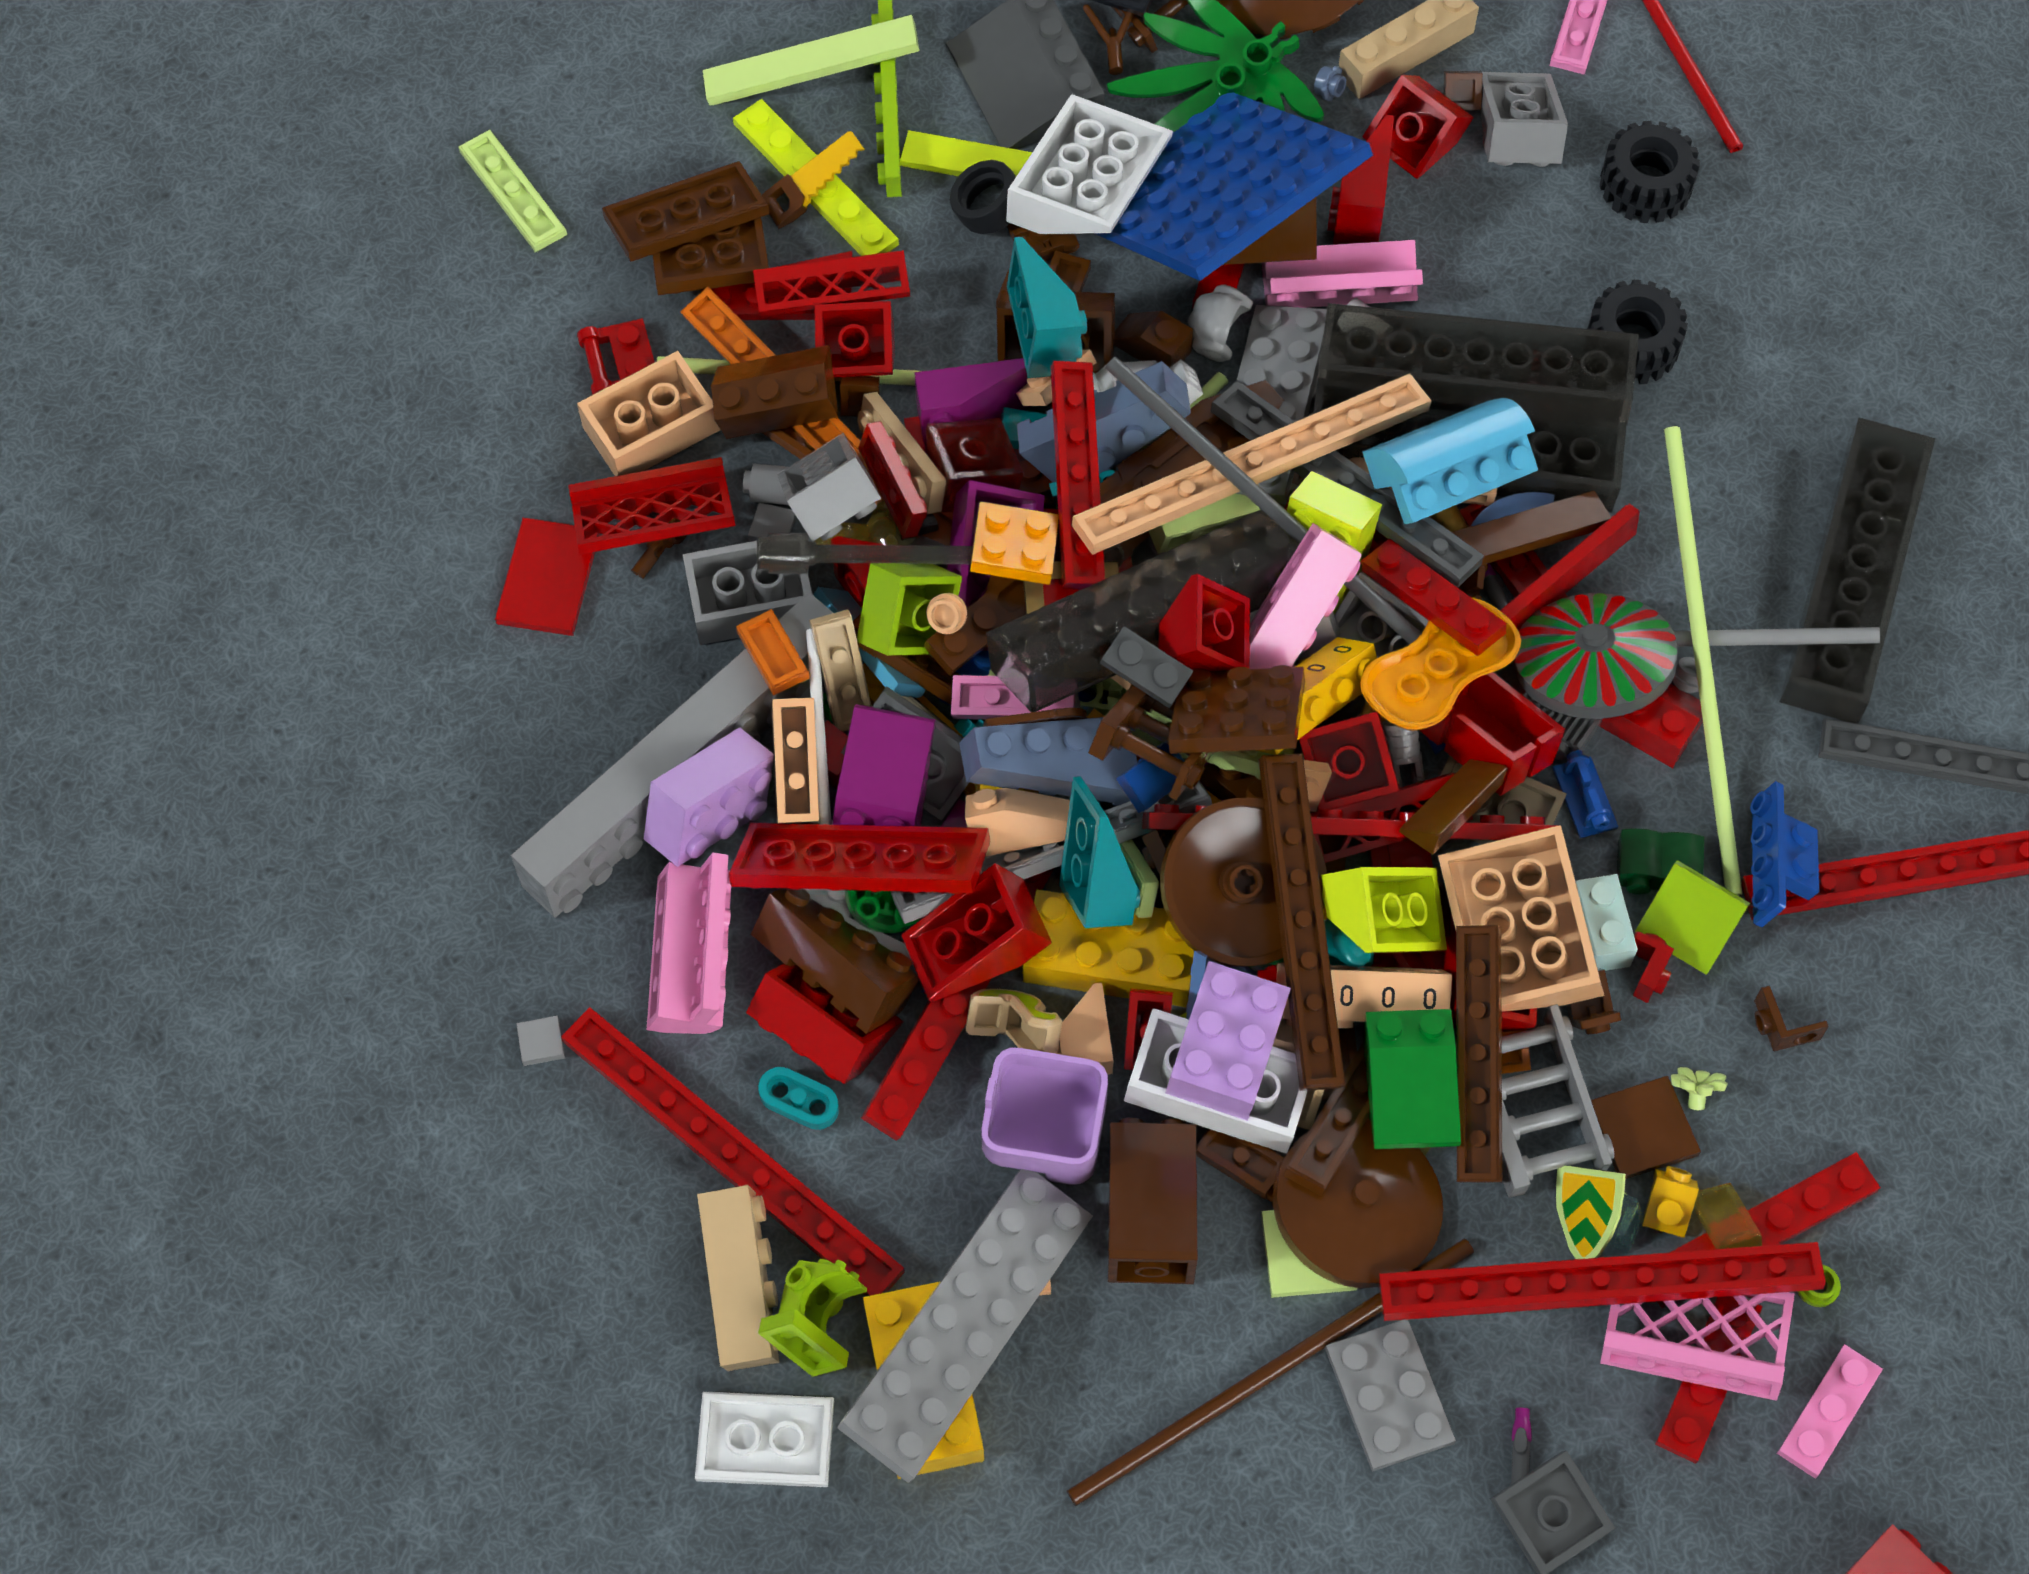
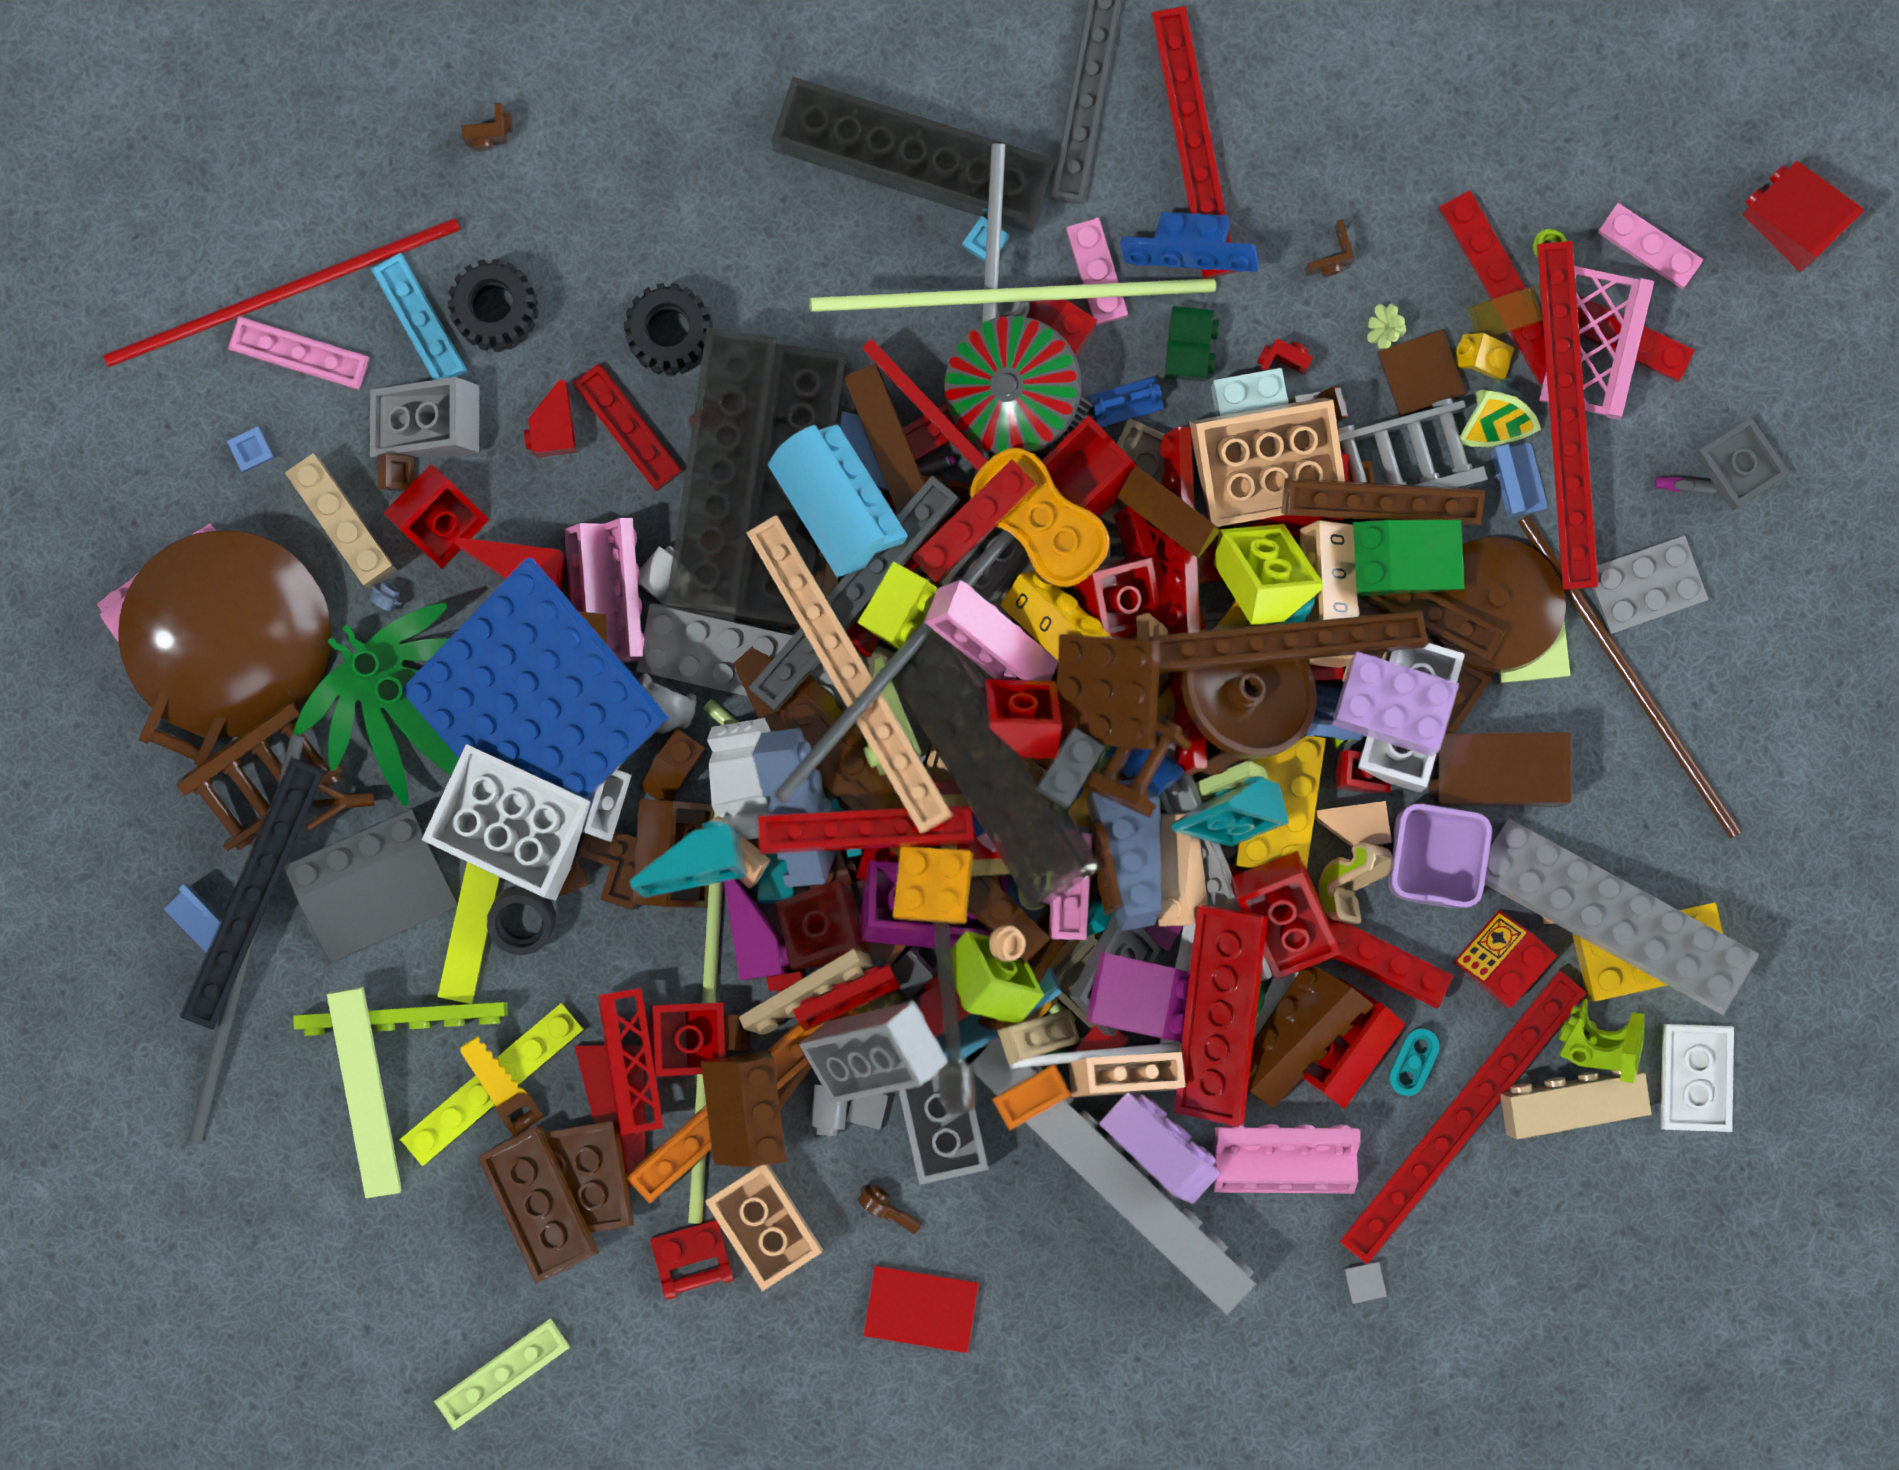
camera: 90 degrees left, 20 degrees up
(656, 490) = (841, 1228): red fence -> none
(917, 1205) = (1504, 959): none -> red slope
(1111, 264) = (606, 806): none -> white slope
(1517, 1235) = (1518, 479): none -> medium blue panel
(1525, 228) = (552, 424): none -> red slope
(1539, 290) = (627, 427): none -> red tile
(1647, 104) = (419, 318): none -> medium azure tile
(1693, 916) = (1244, 321): lime tile -> none
(1745, 767) = (1096, 268): none -> bright pink plate
(1764, 657) = (977, 238): none -> medium azure plate
(1839, 174) = (484, 135): none -> reddish brown bracket

